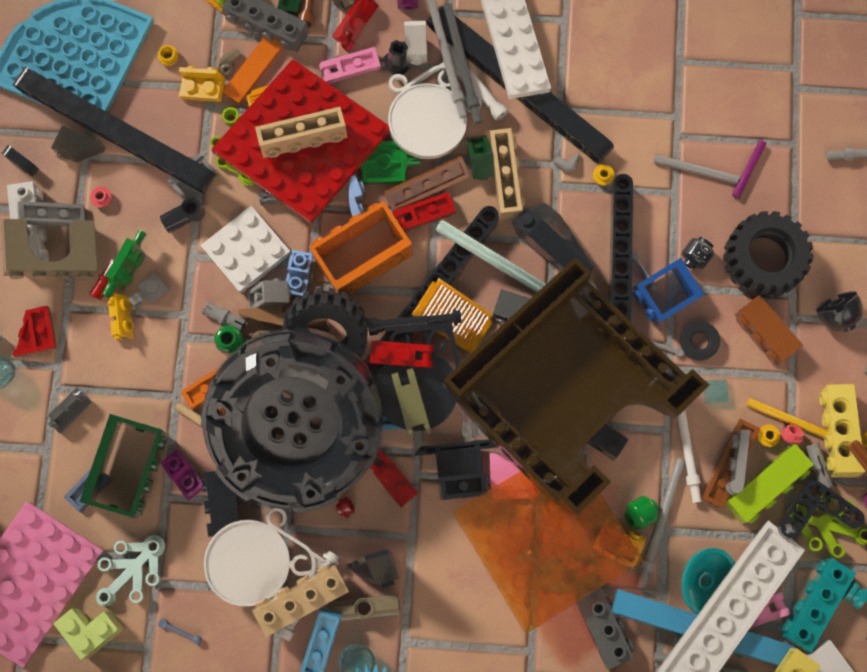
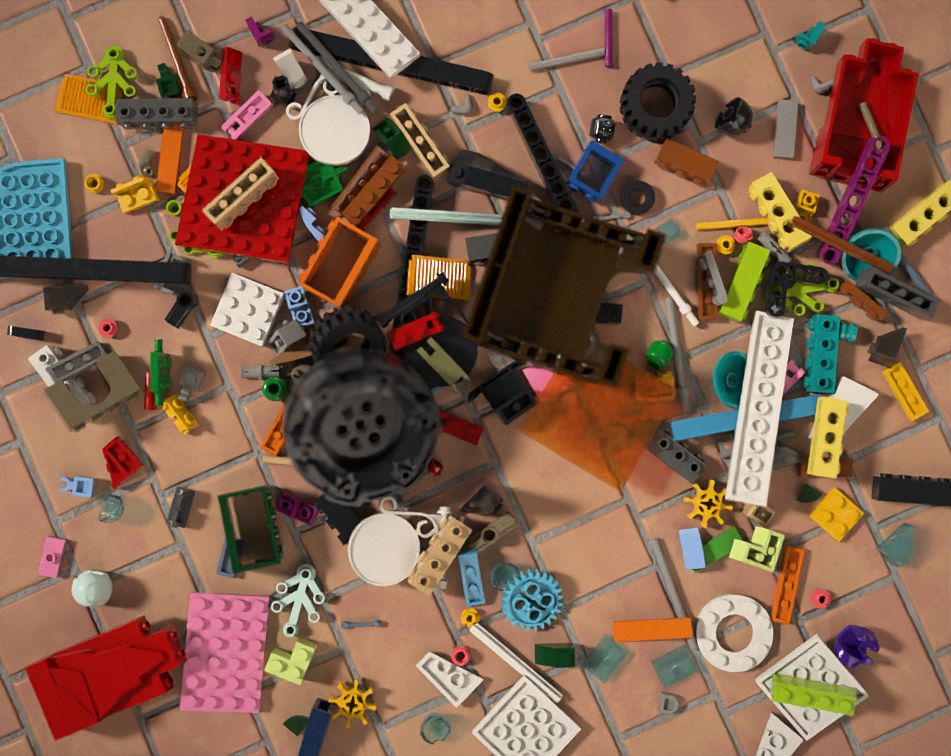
camera: 35 degrees left, 10 degrees up
(434, 197) = (374, 190): none -> dark orange plate

